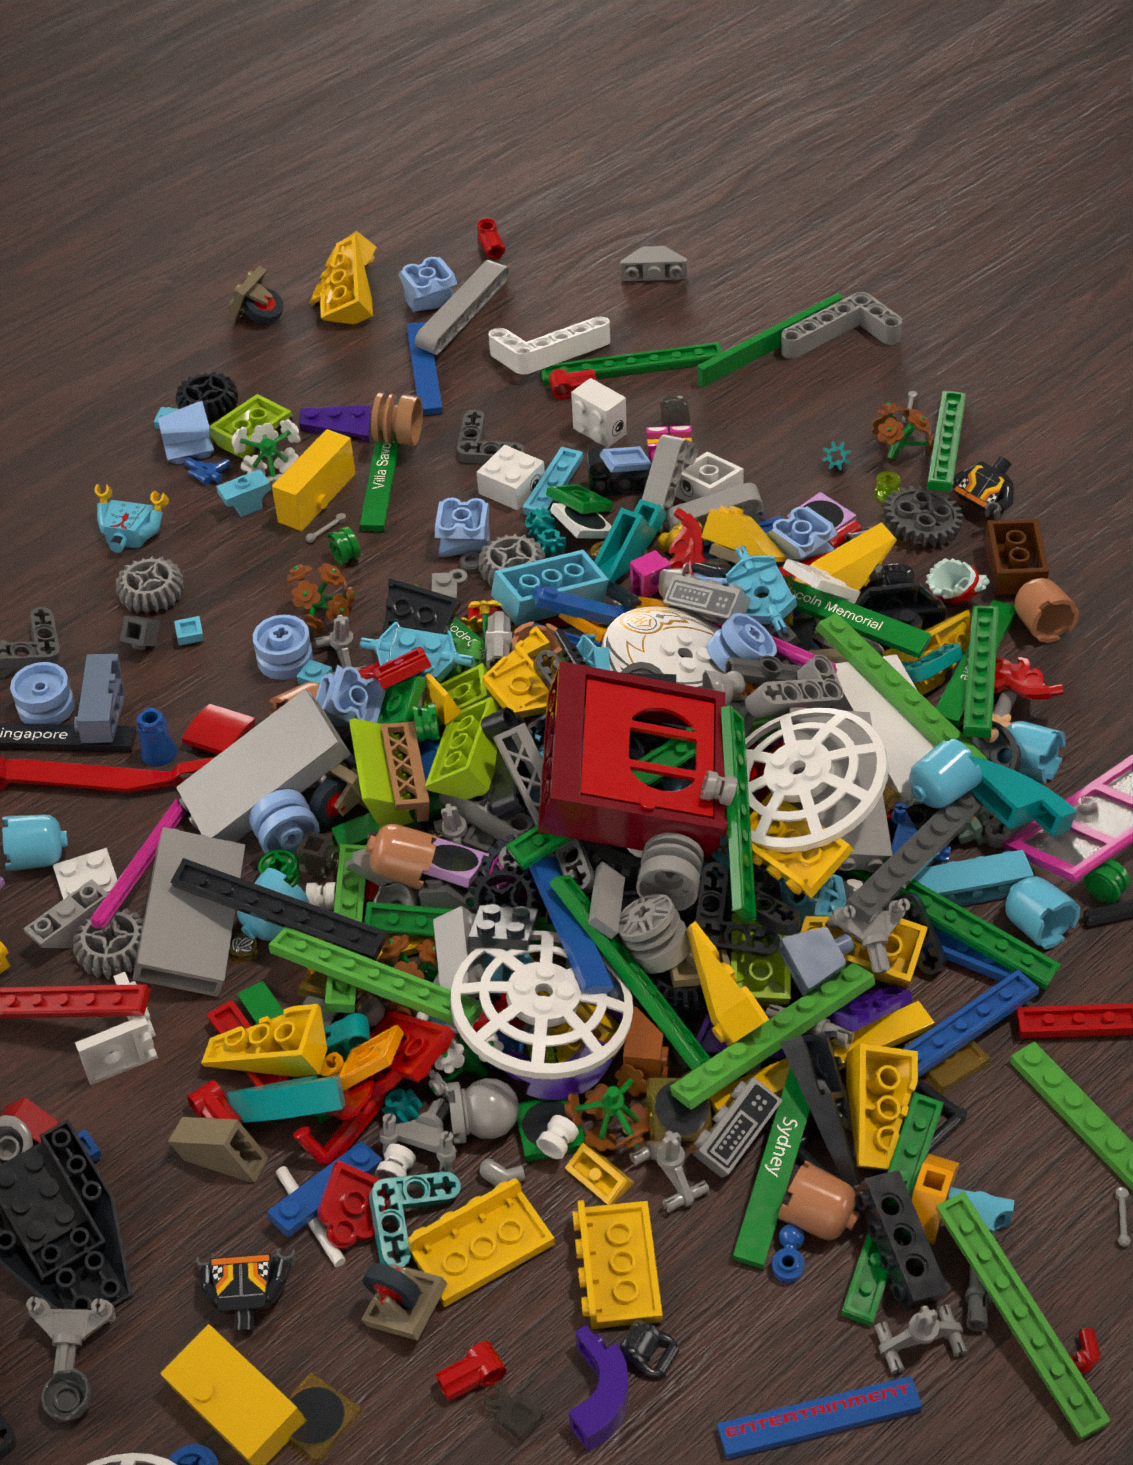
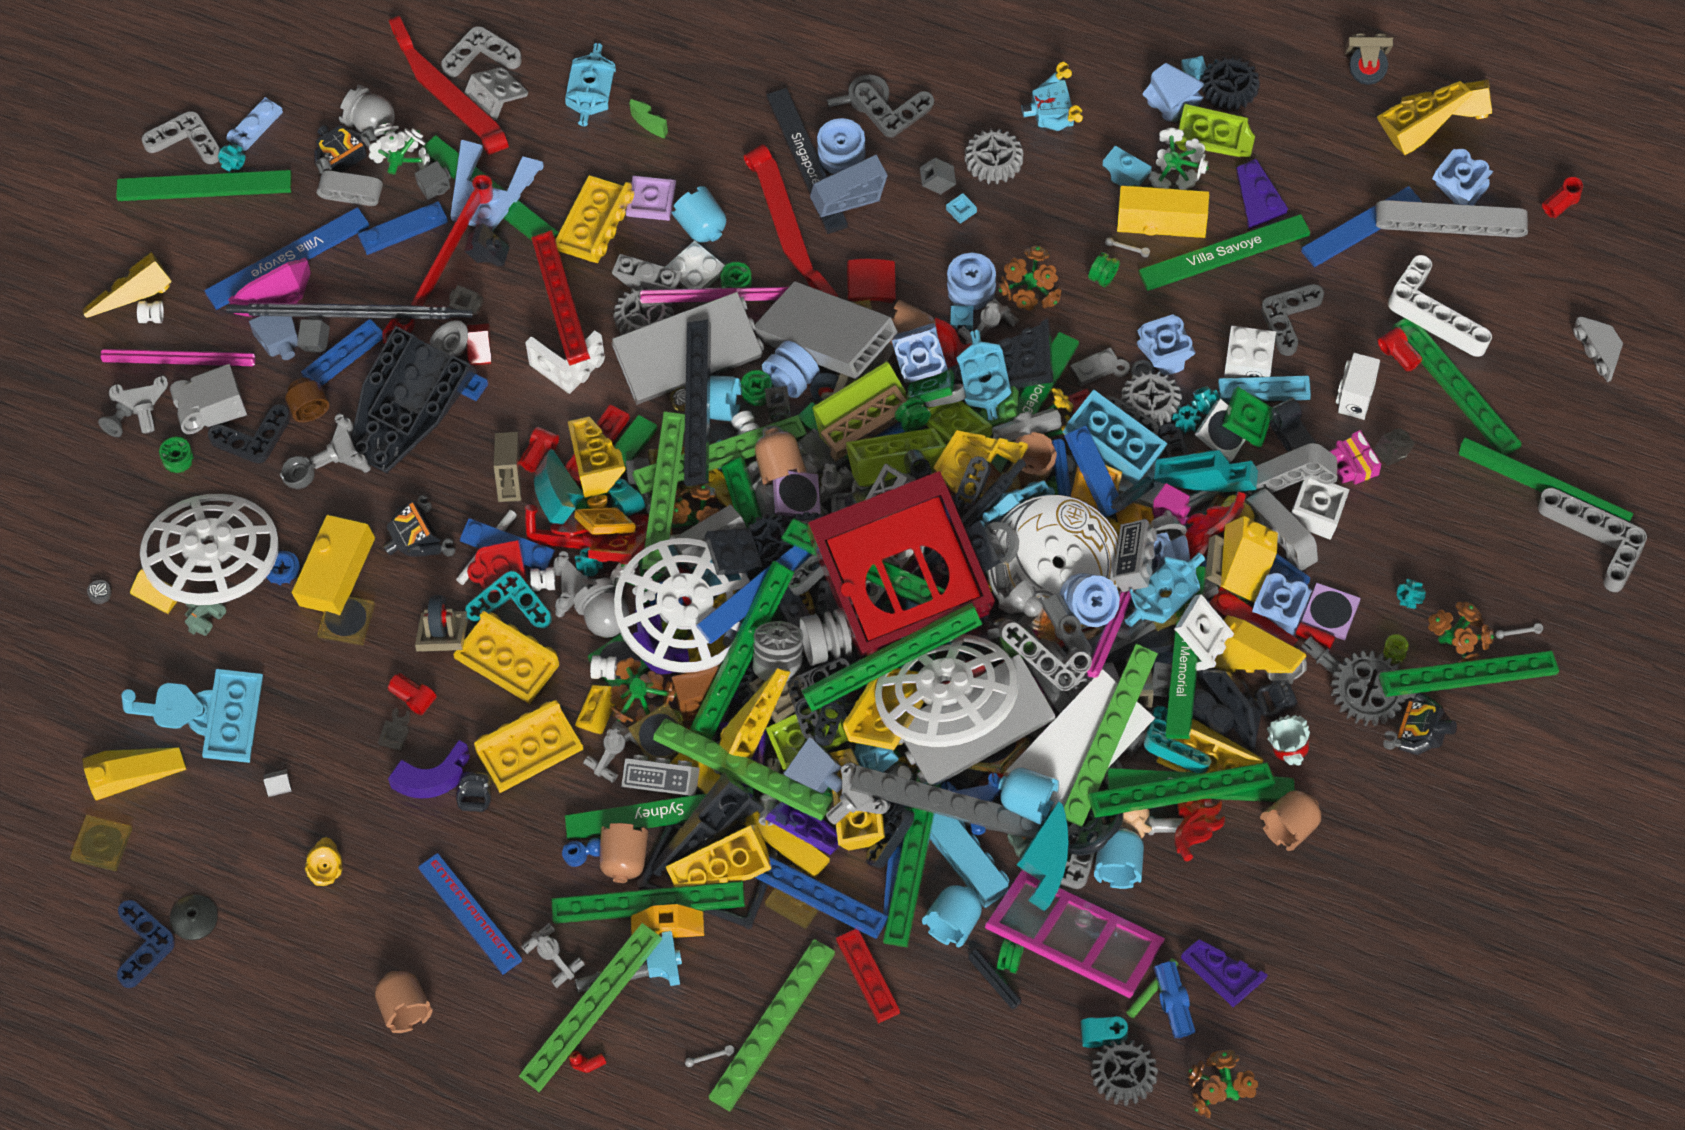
camera: 65 degrees right, 15 degrees up
(126, 841) = (734, 270): none -> green wheel
(155, 739) = (835, 245): blue plant -> none
(207, 472) = (1146, 128): blue piece -> none
(397, 419) = (1260, 237): medium nougat wheel -> none
(402, 667) = (956, 372): red plate -> none
(445, 706) = (941, 414): yellow slope -> none
(496, 1173) = (565, 647): light grey arm -> none
(606, 900) = (785, 606): light grey tile -> none
(625, 459) = (1297, 428): light blue tile -> none
(712, 568) = (1192, 545): black piece -> none
(718, 788) = (888, 631): light grey wheel -> none
(891, 1192) = (591, 944): black brick -> none
(1014, 554) = (1348, 777): reddish brown brick -> none

